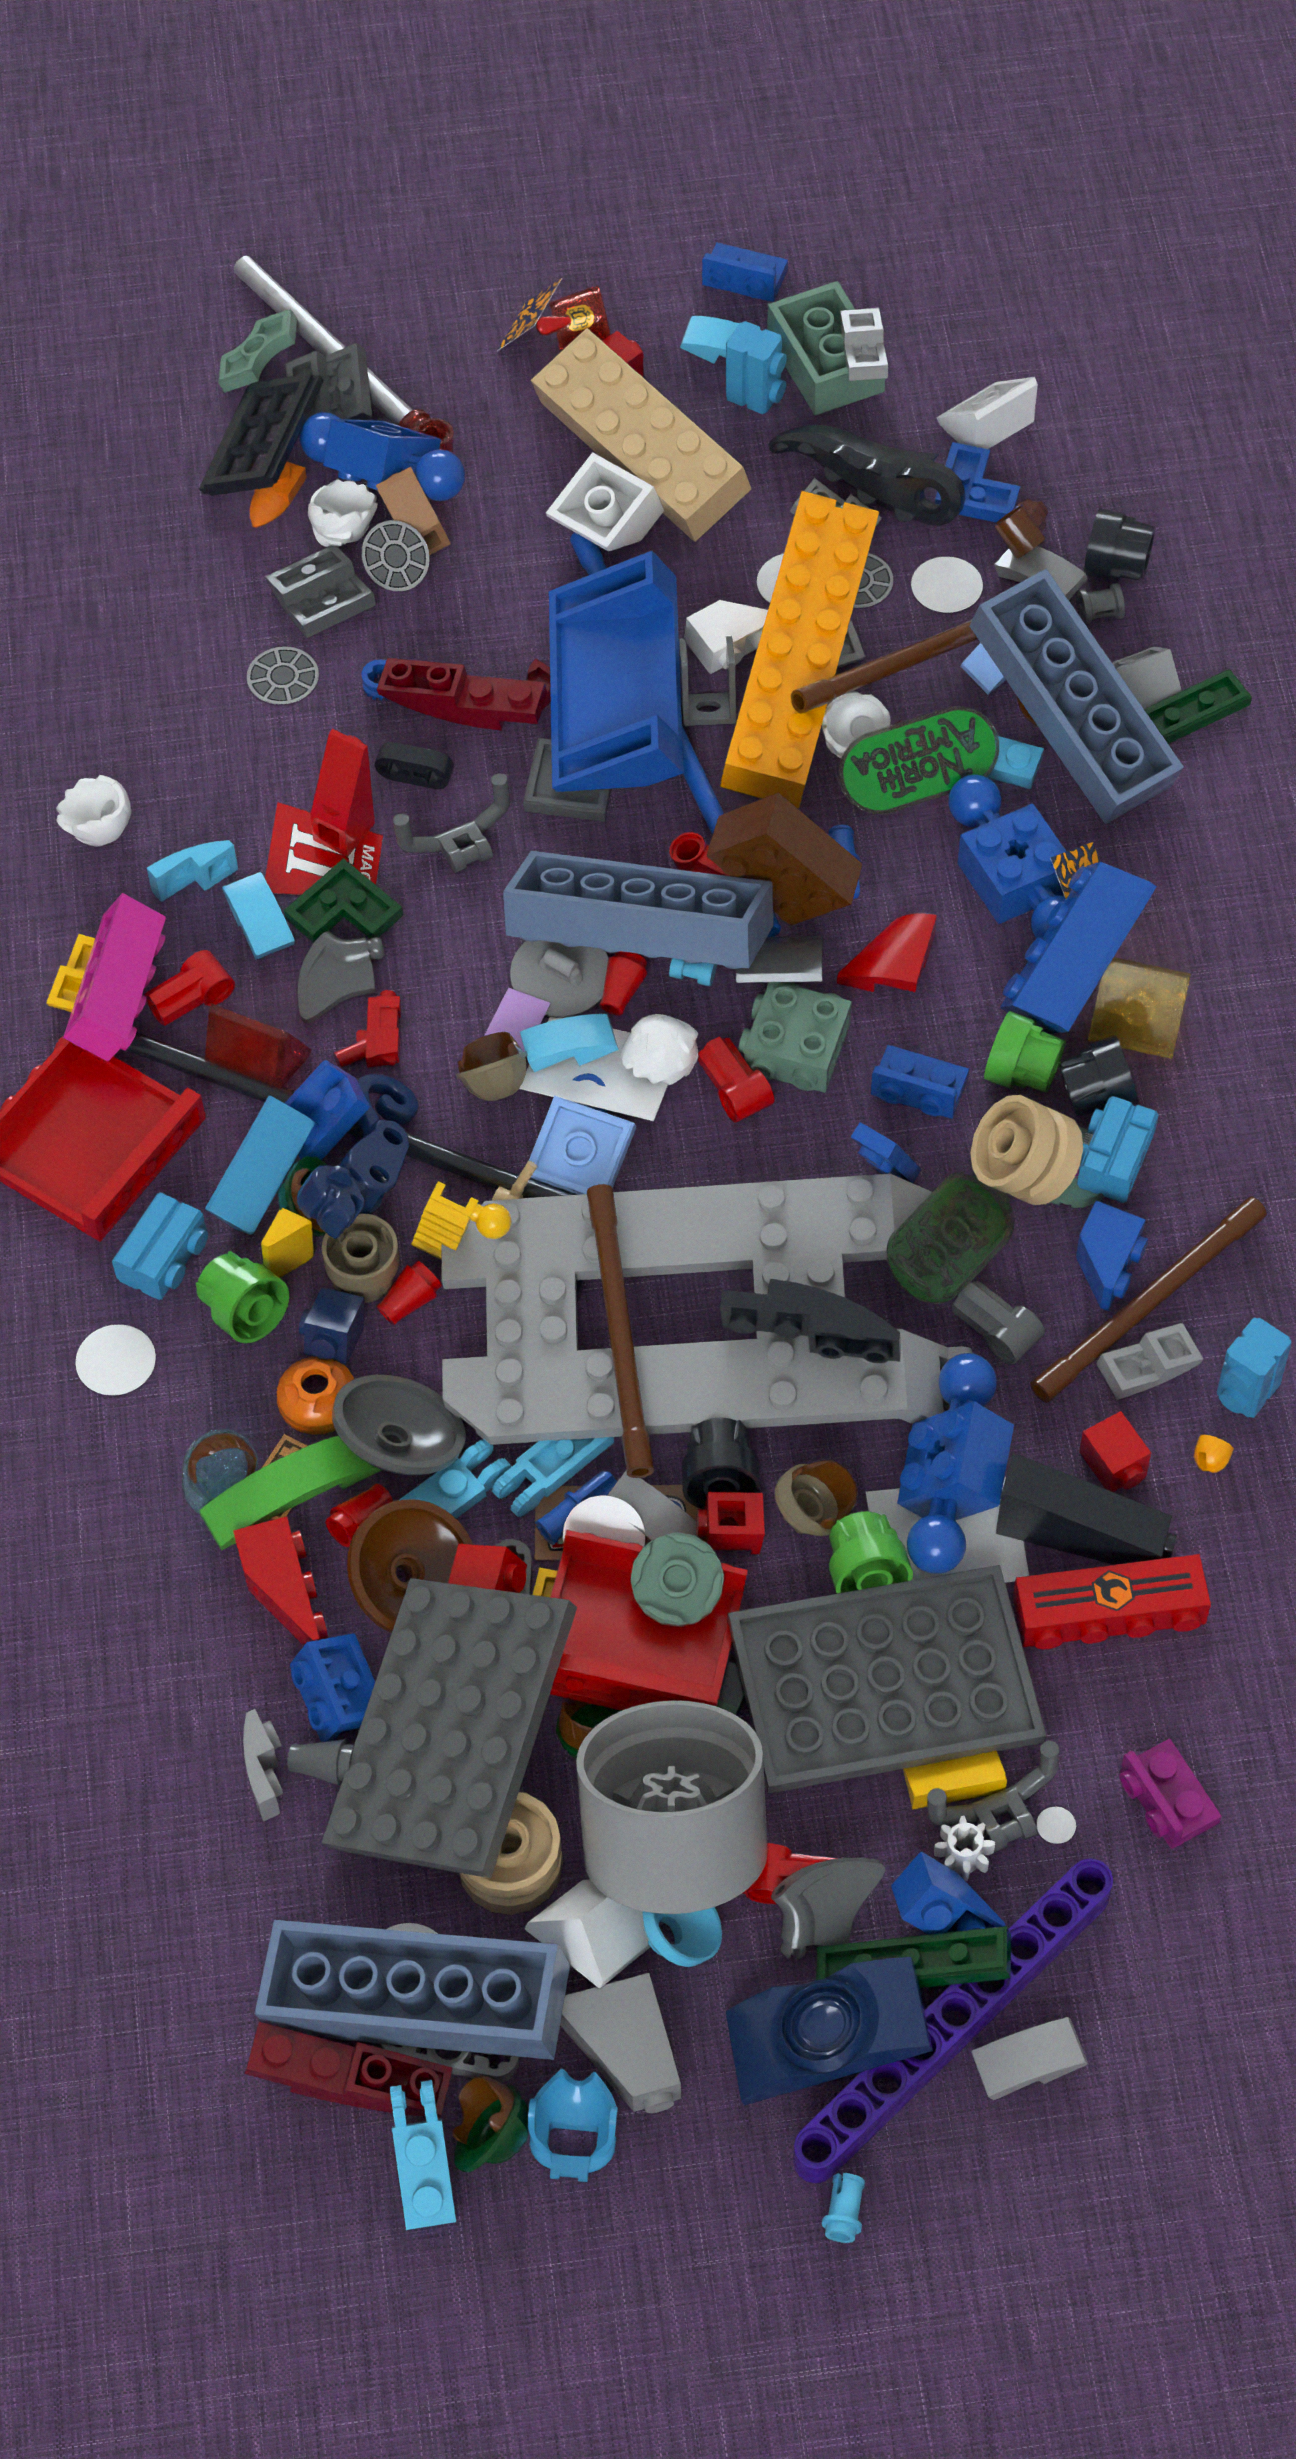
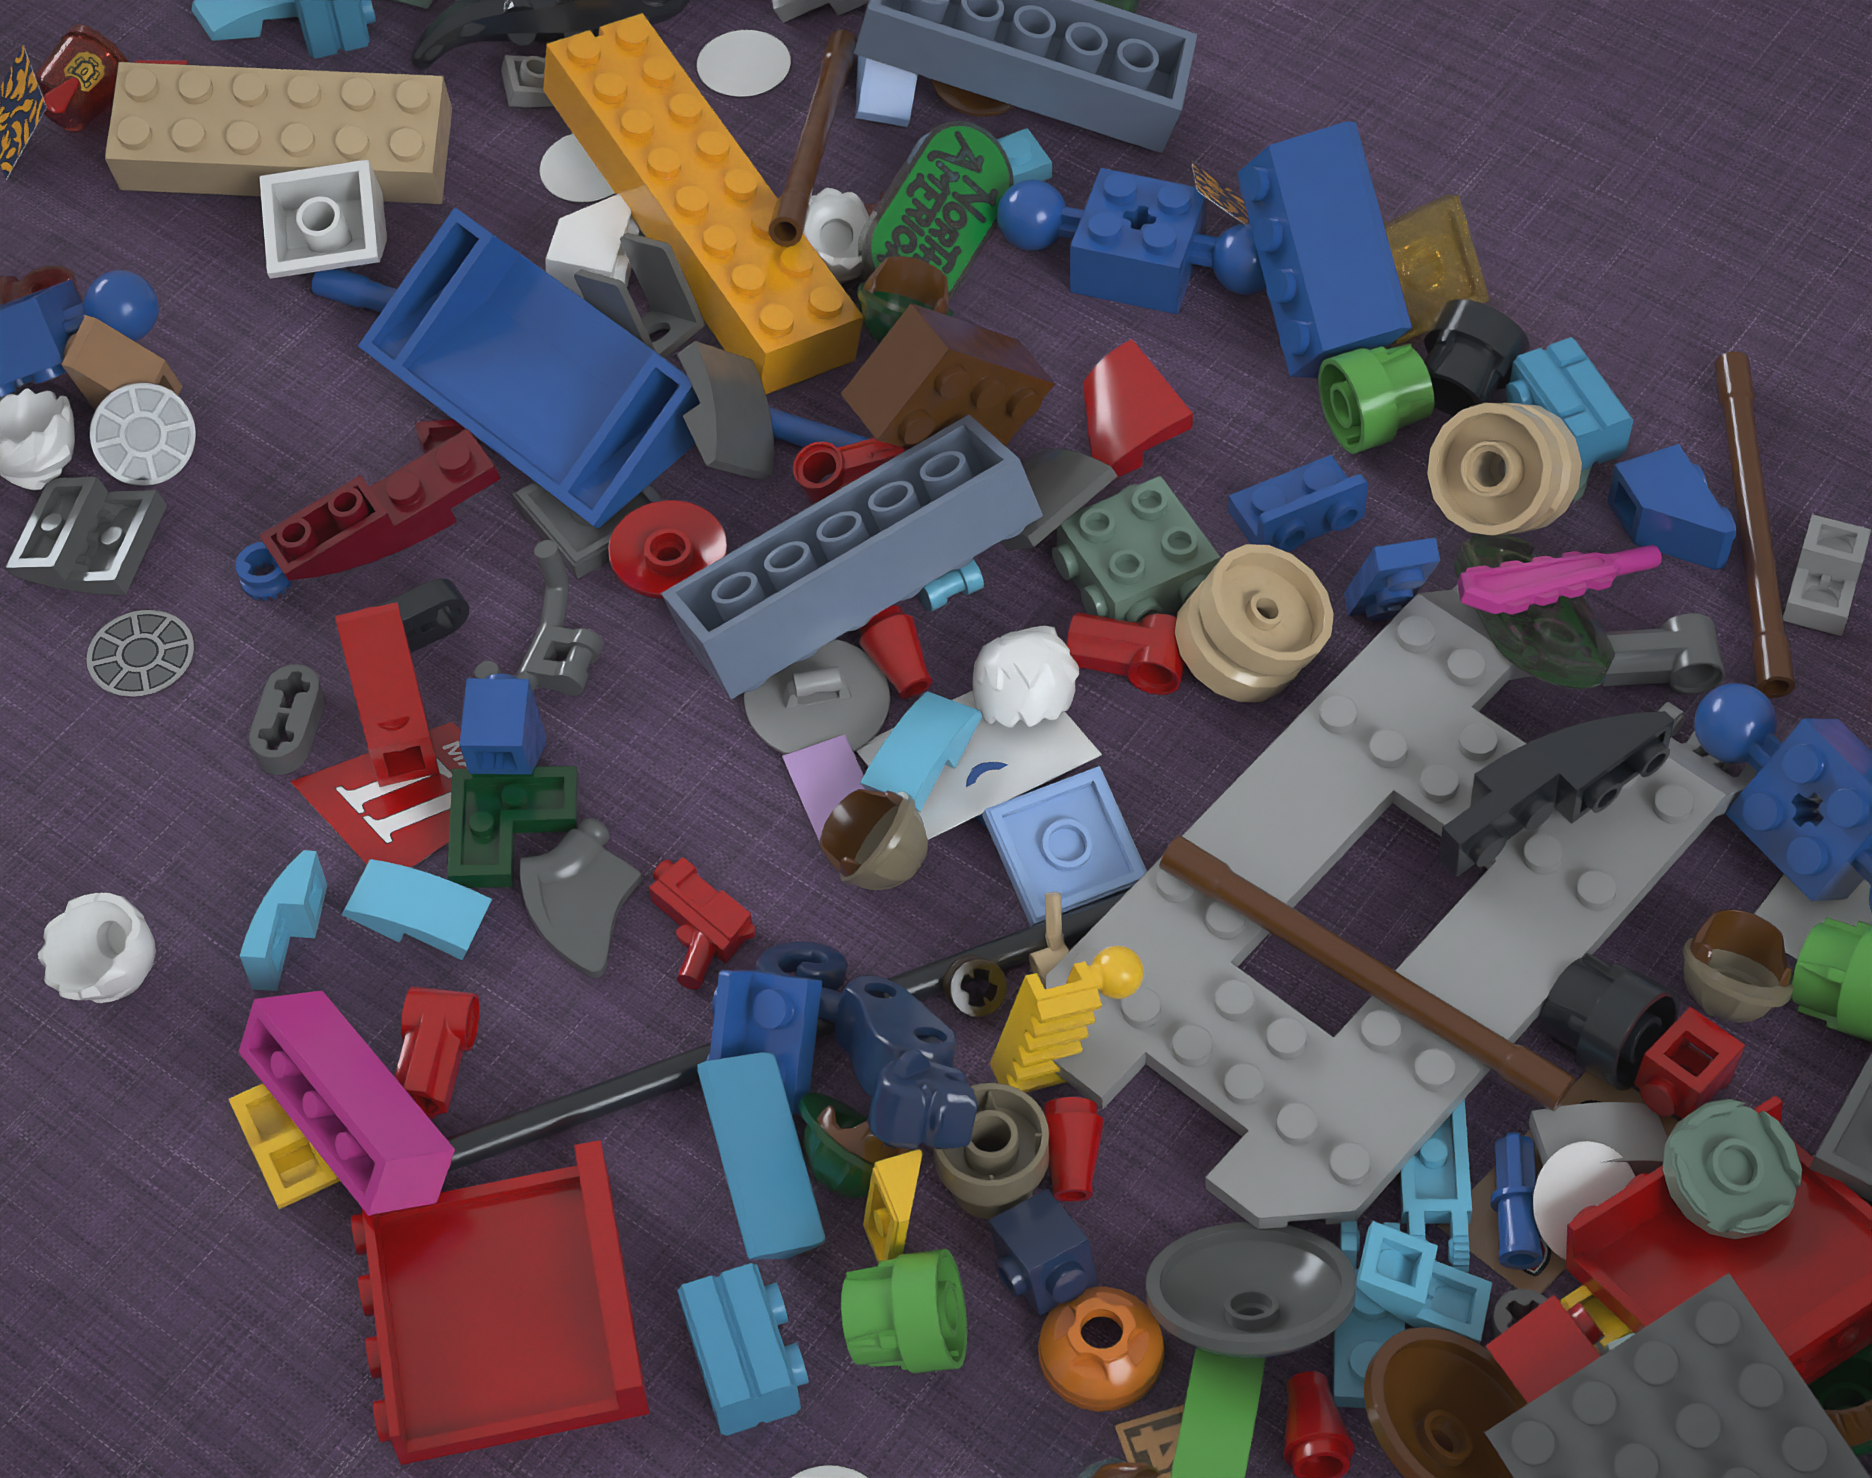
camera: 45 degrees left, 5 degrees down
(253, 1047) = (592, 1041): clear red slope -> none
(299, 764) = (275, 716): none -> dark grey beam
(378, 856) = (501, 726): none -> blue slope
(469, 1180) = (960, 998): none -> dark brown bush
(477, 1497) = (1409, 1283): none -> medium azure slope
(574, 818) = (661, 533): none -> red dish
(673, 781) = (734, 414): none -> dark grey slope
(776, 1132) = (1254, 623): none -> tan wheel
(834, 793) = (897, 285): none -> reddish brown piece
(957, 1221) = (1545, 578): none -> dark pink sword

